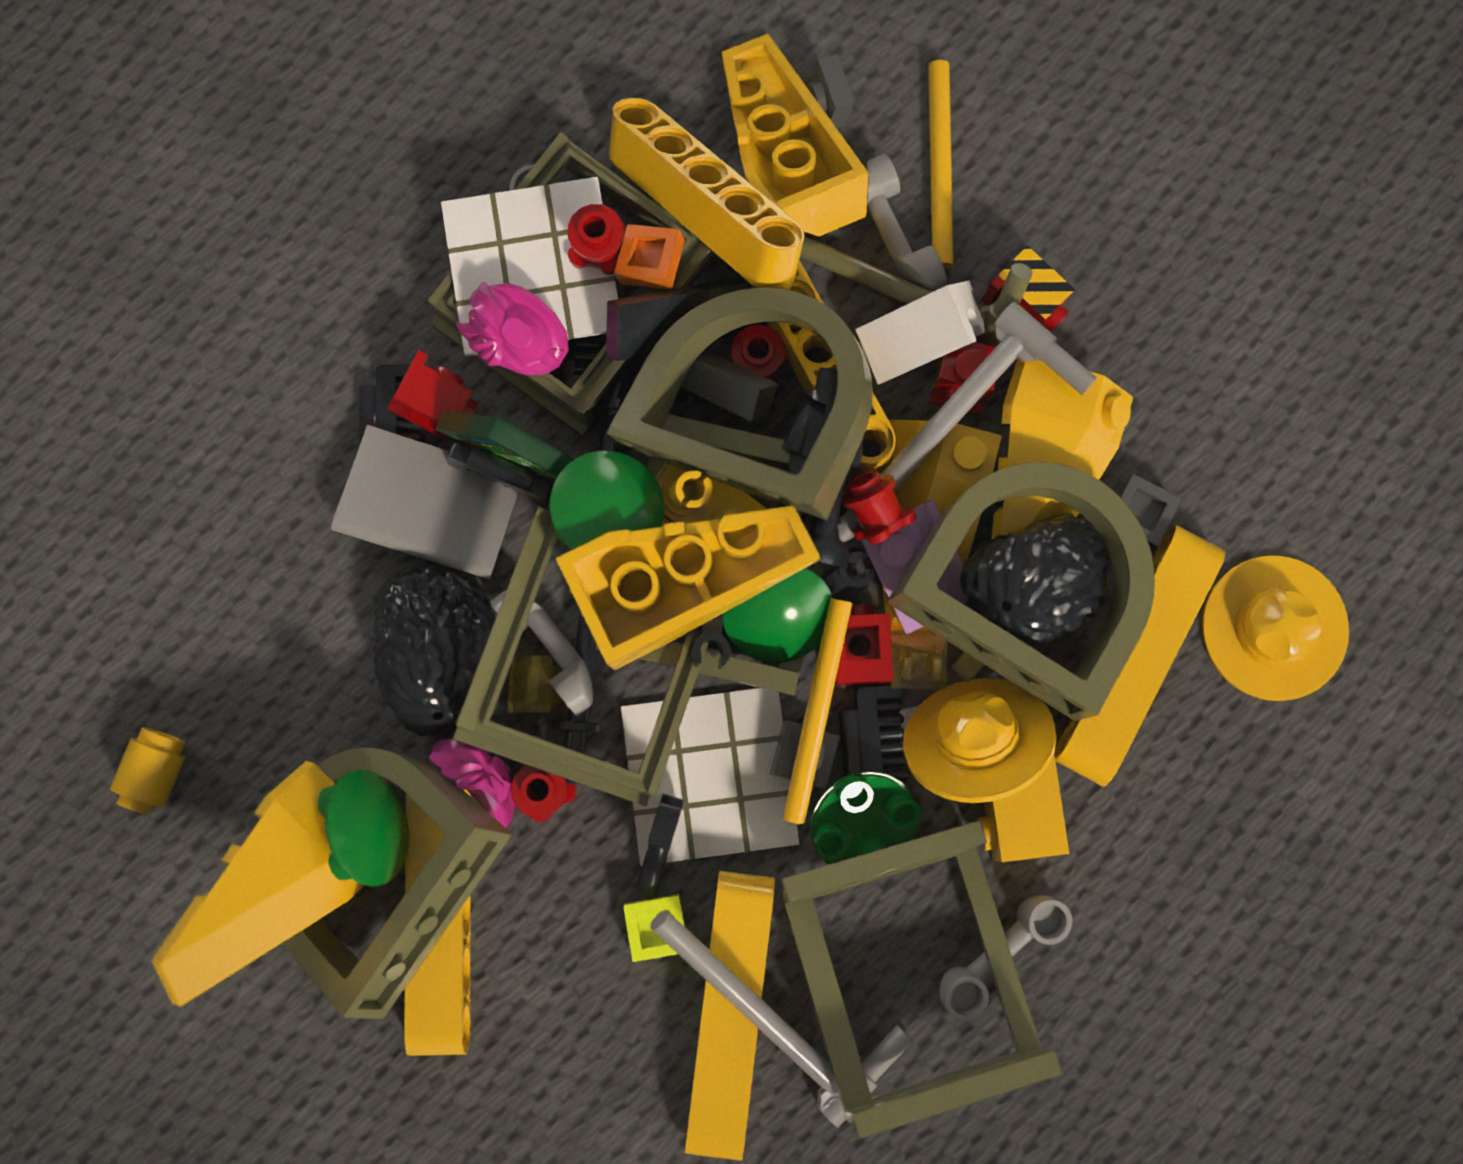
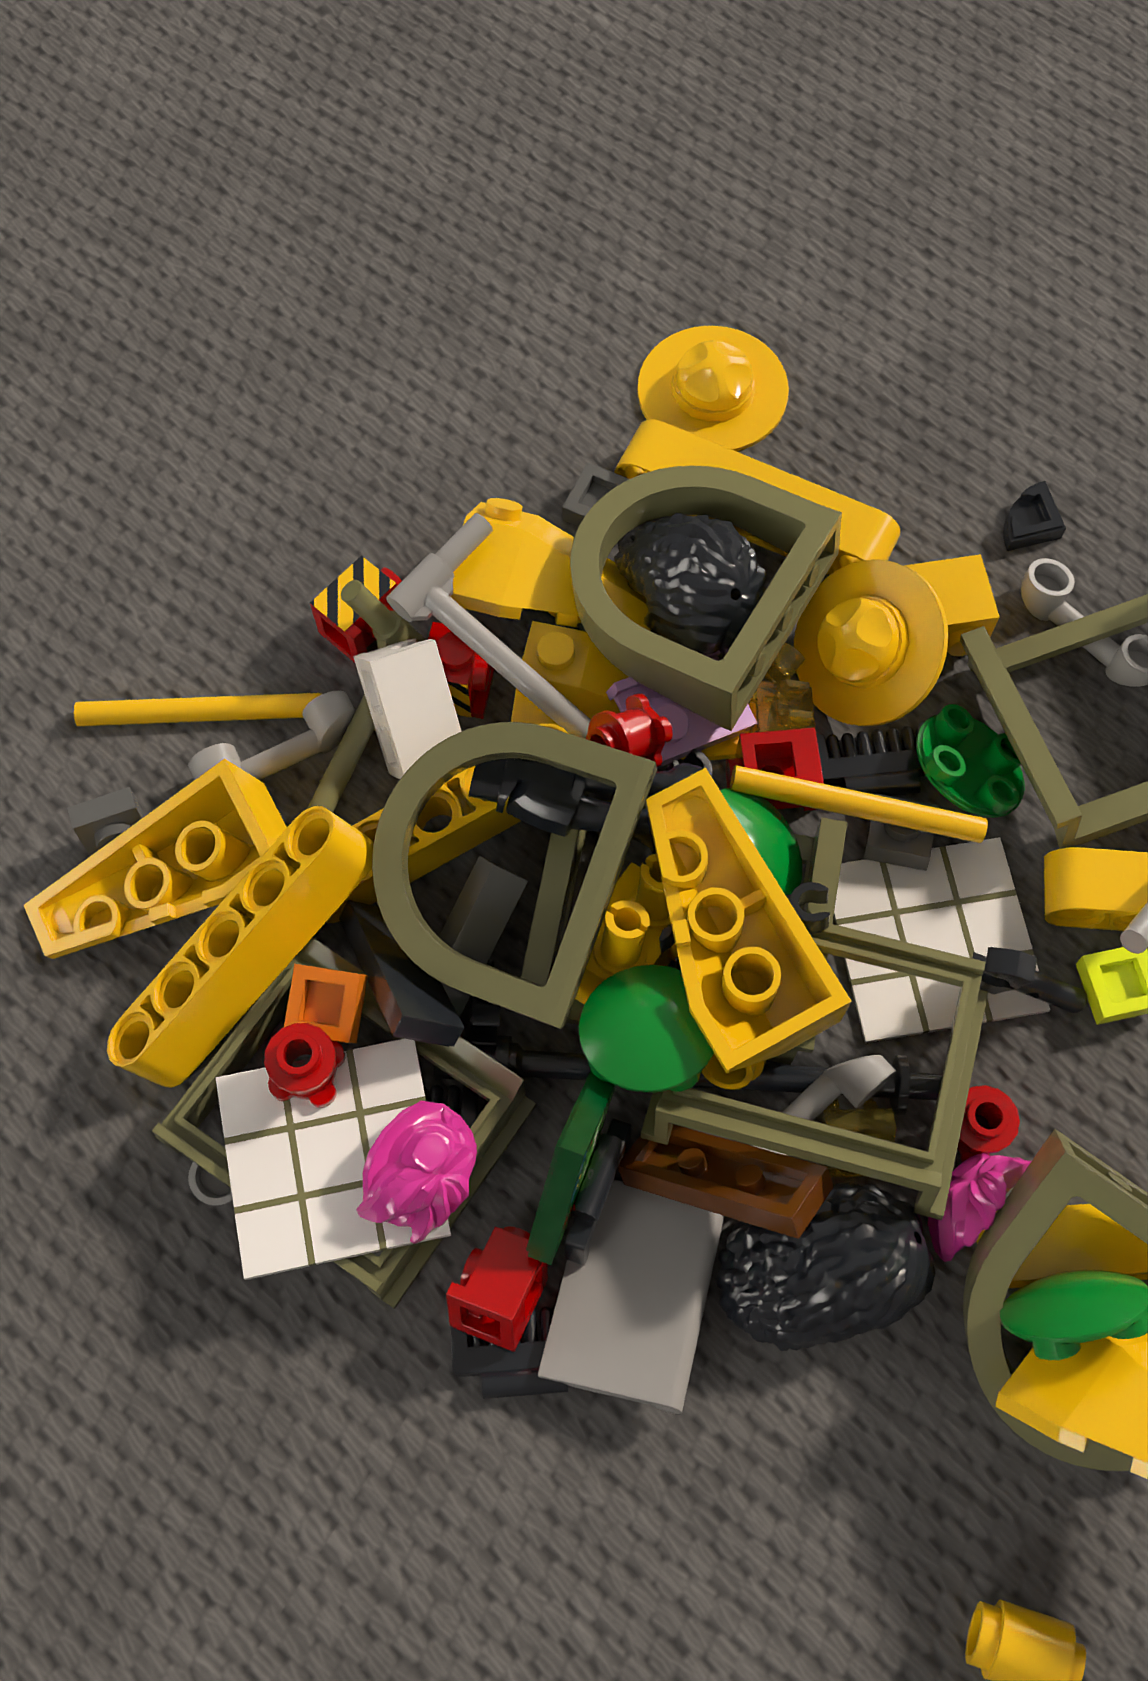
camera: 90 degrees left, 15 degrees down
(480, 586) = (729, 1179): none -> reddish brown plate
(758, 338) = (432, 876): red brick -> none
(1124, 920) = (1033, 519): none -> black tile

